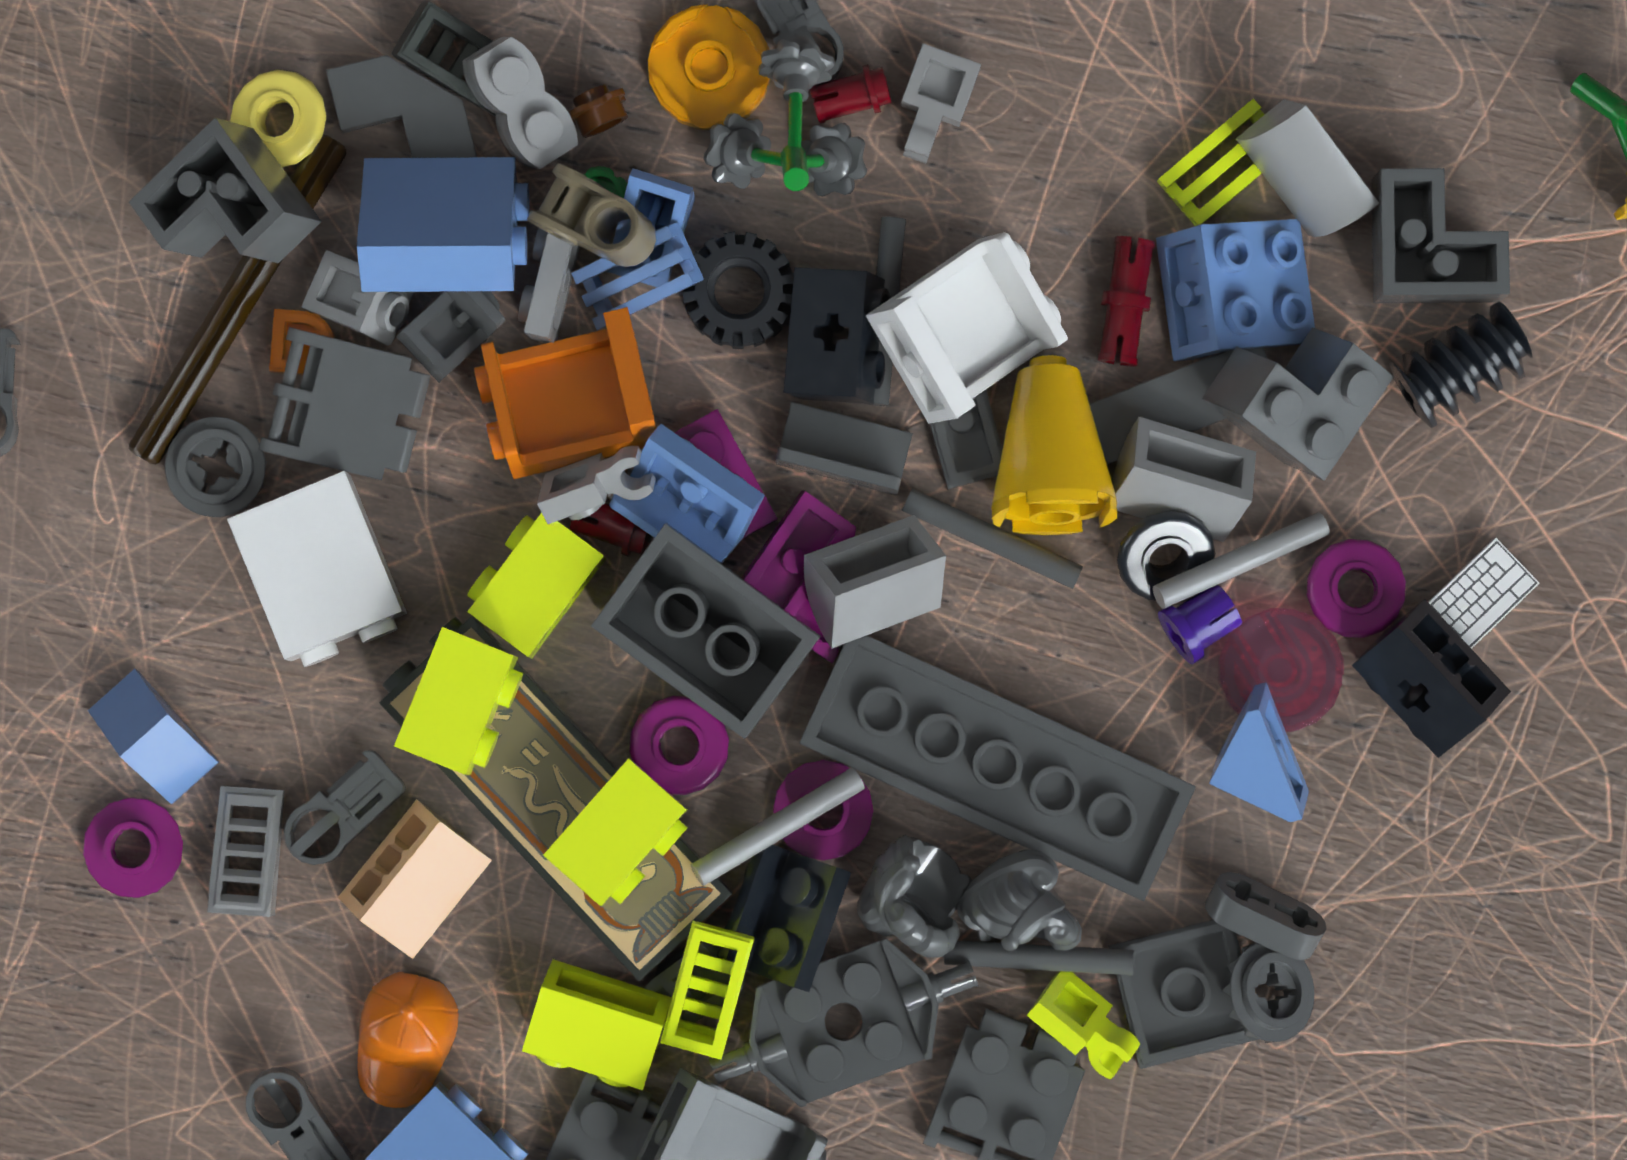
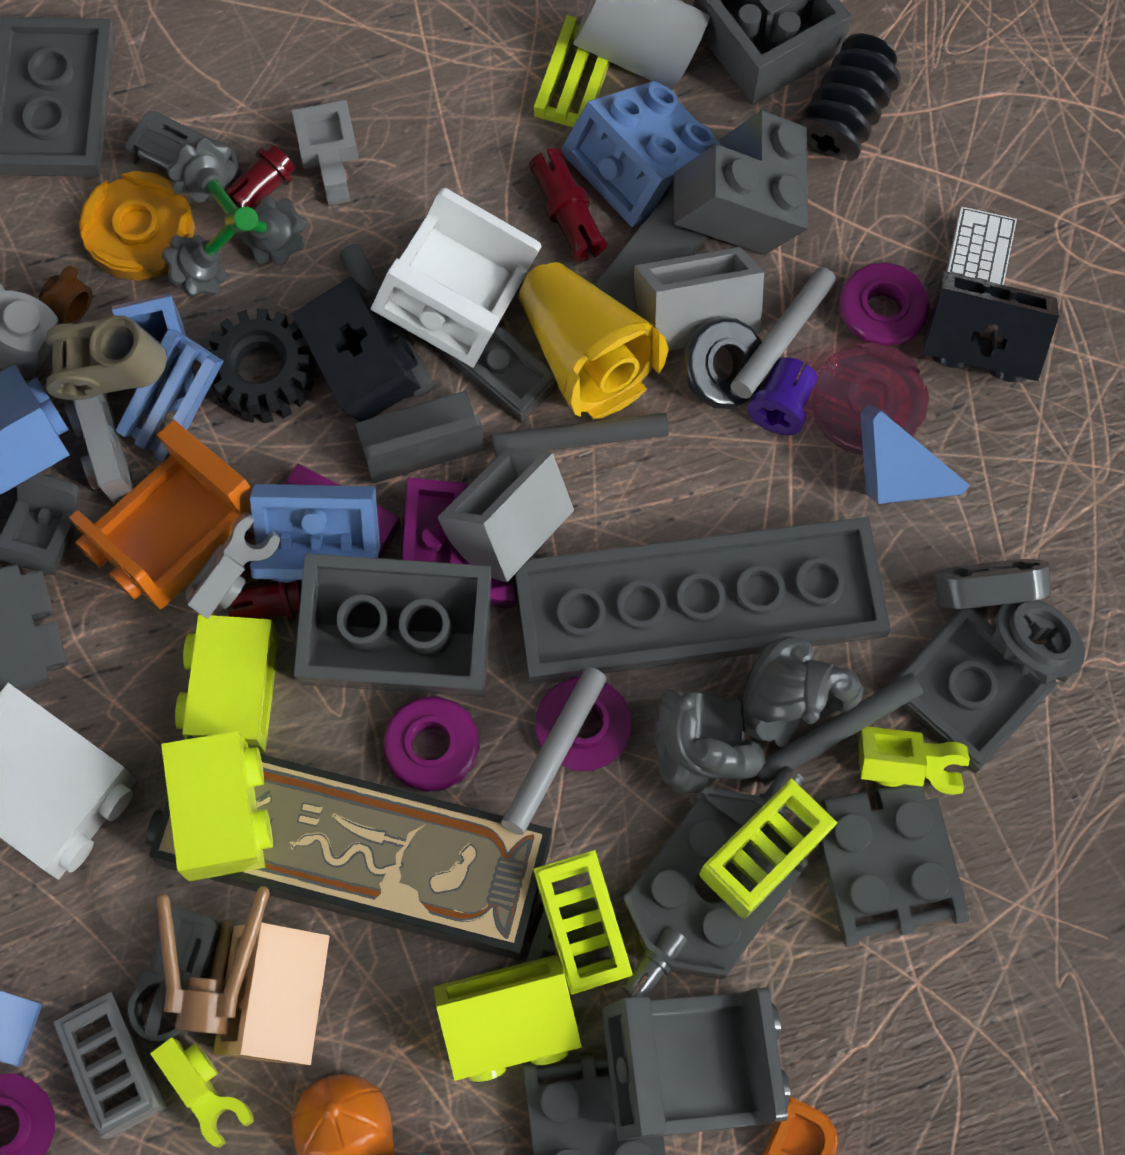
camera: 30 degrees left, 15 degrees down
(309, 904) = (190, 1075): none -> neon yellow plate
(354, 856) = (211, 1001): none -> medium nougat plant
(617, 833) = (421, 831): neon yellow brick -> none
(789, 911) = (613, 813): black bracket -> none
(850, 1035) = (731, 889): none -> neon yellow slope

